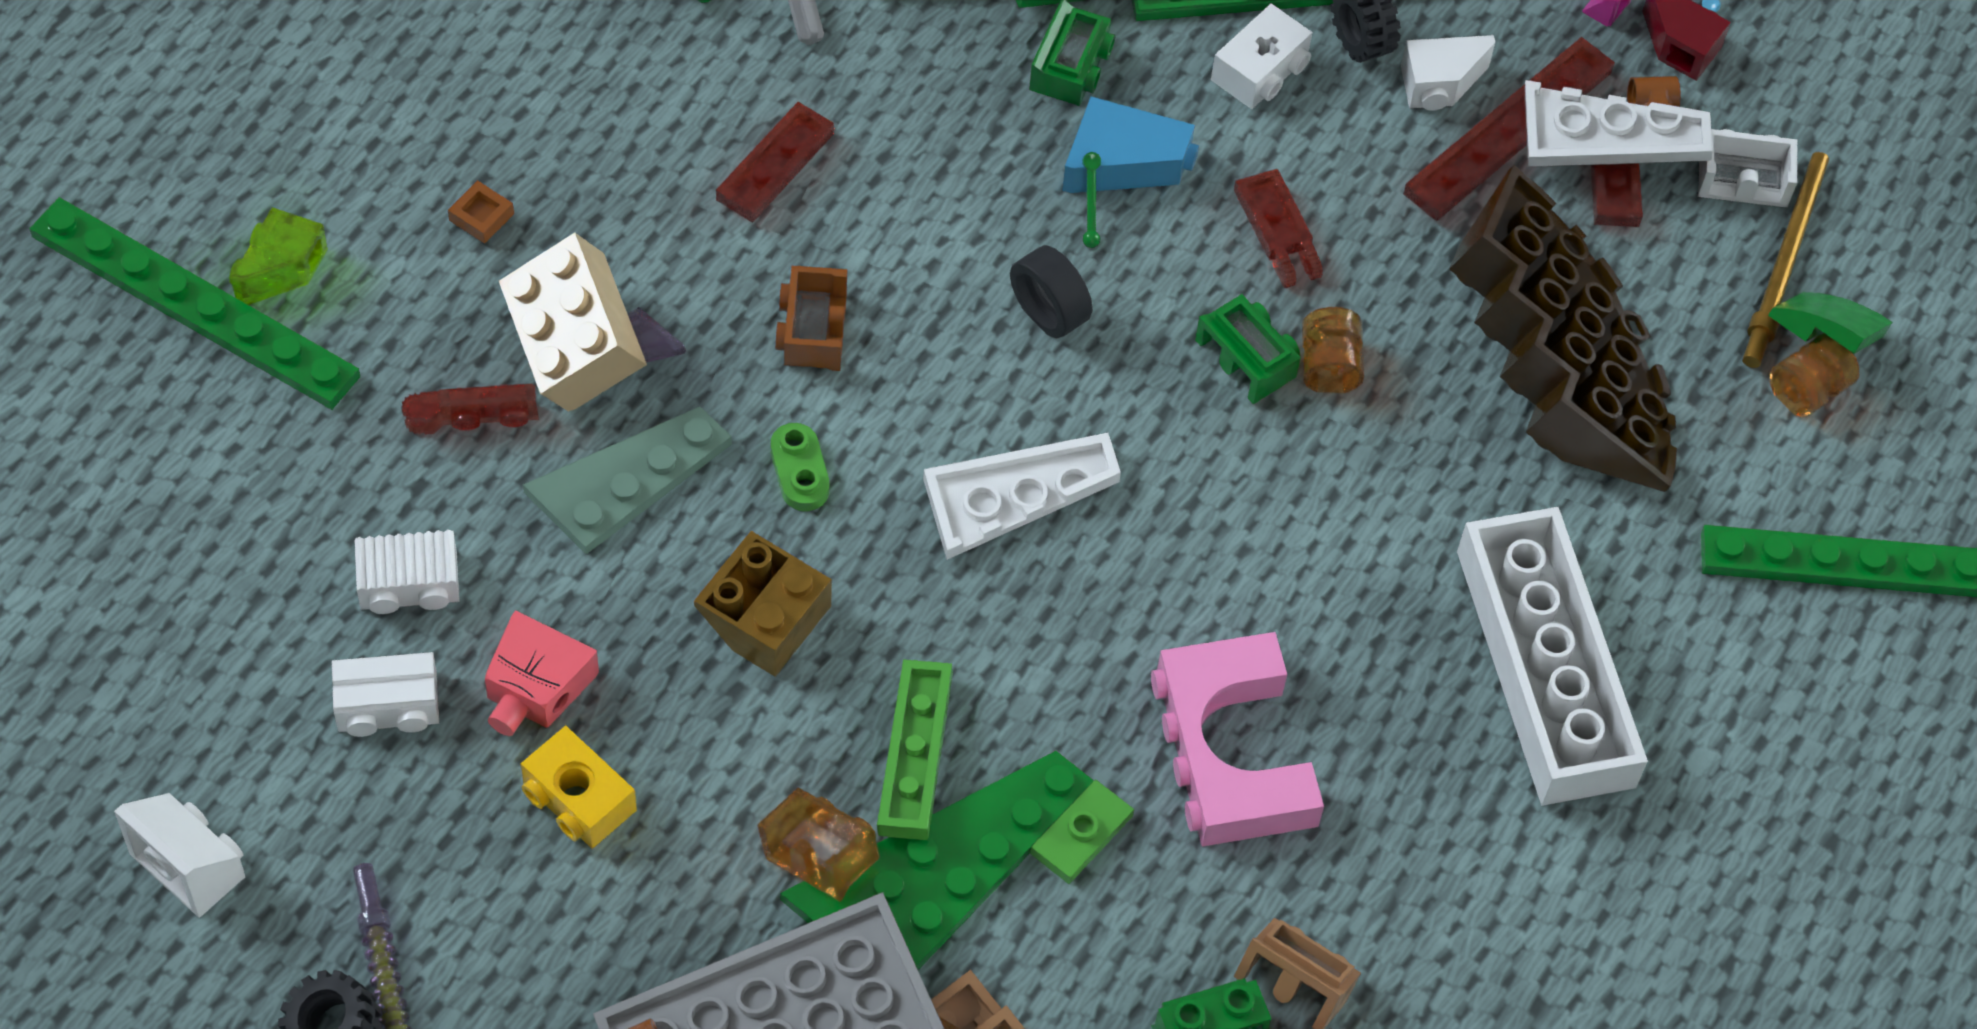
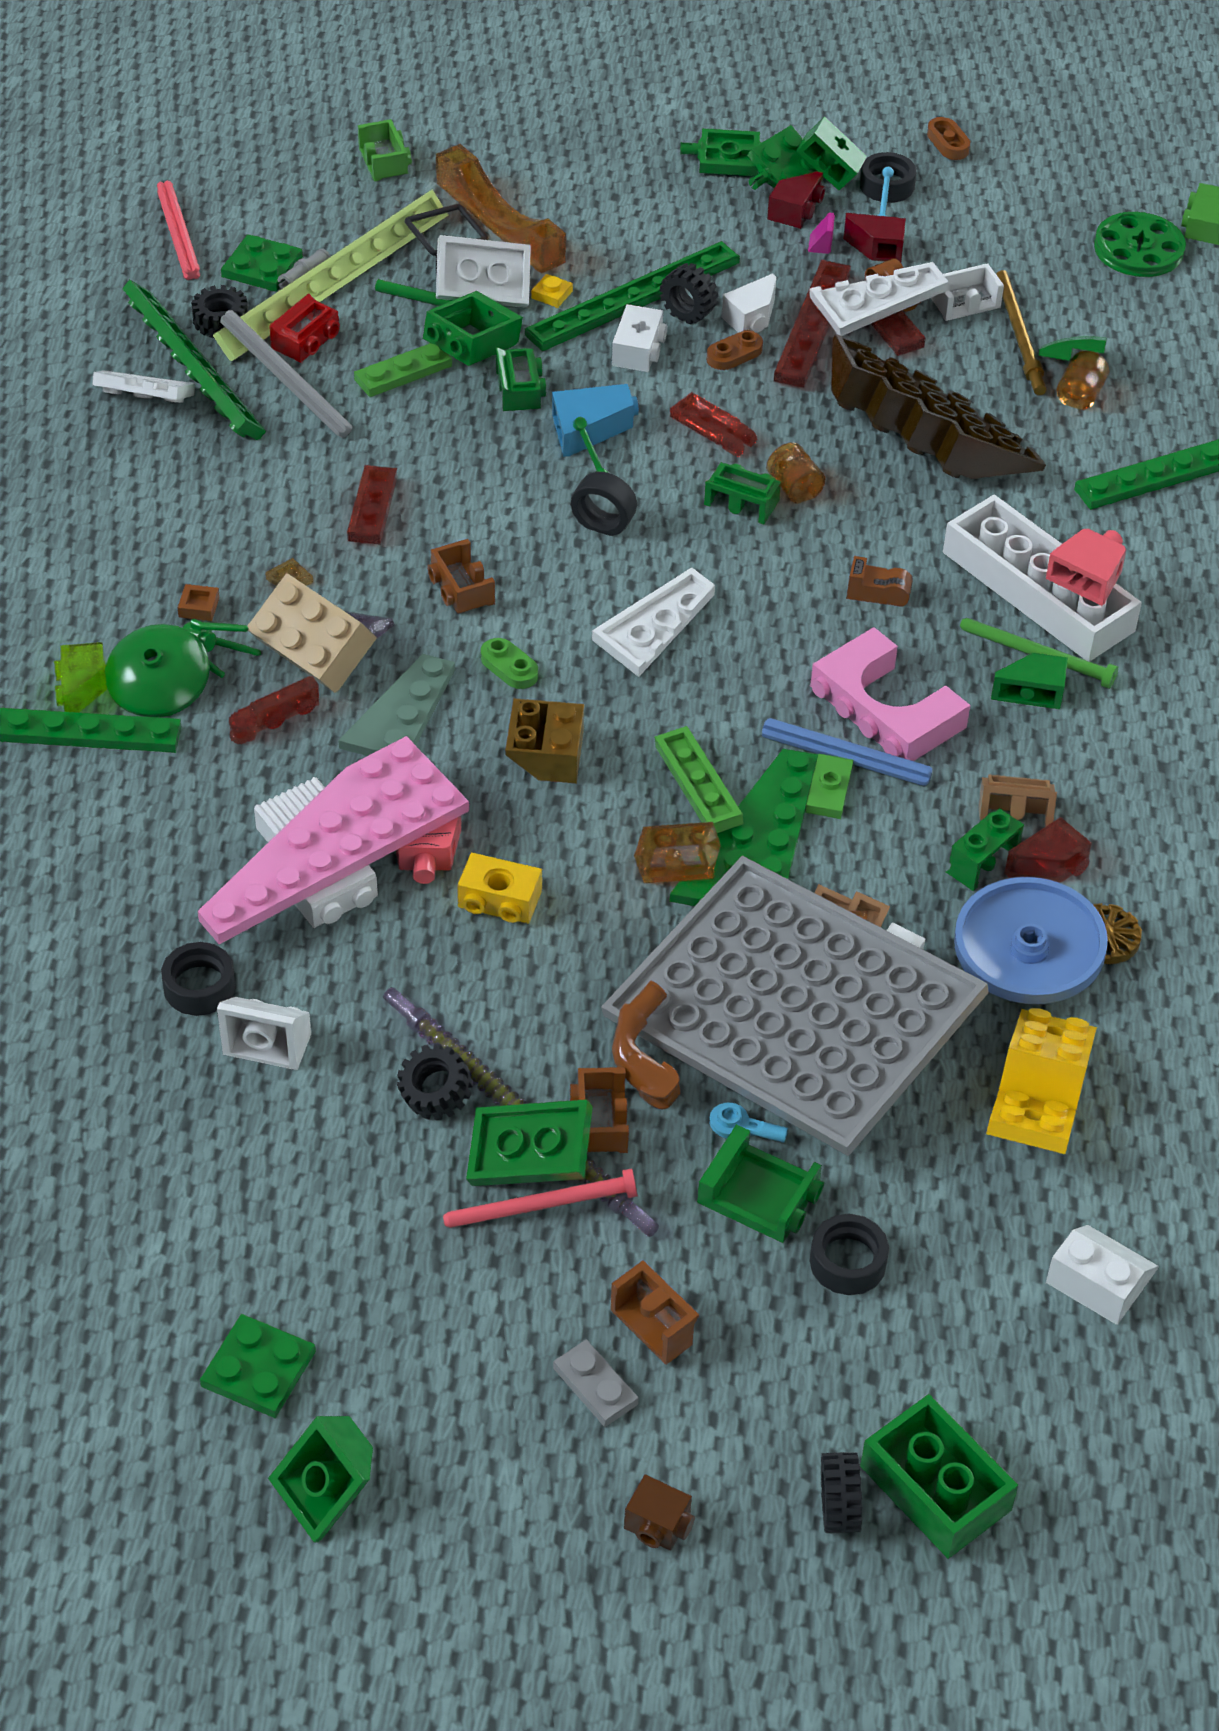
camera: 25 degrees left, 10 degrees down
(169, 773) = (191, 956): none -> black tyre
(383, 306) = (158, 685): none -> green dish
(451, 267) = (204, 633): none -> green plant
(458, 618) = (344, 828): none -> bright pink wing
(615, 217) = (291, 567): none -> clear orange tile
(1136, 793) = (862, 756): none -> medium blue axle
(1335, 563) = (878, 584): none -> dark orange leg
(1383, 125) = (734, 350): none -> dark orange plate
(1441, 803) = (1032, 681): none -> green slope
(1549, 837) = (1106, 675): none -> bright green bar
(1605, 676) = (1088, 564): none -> coral torso

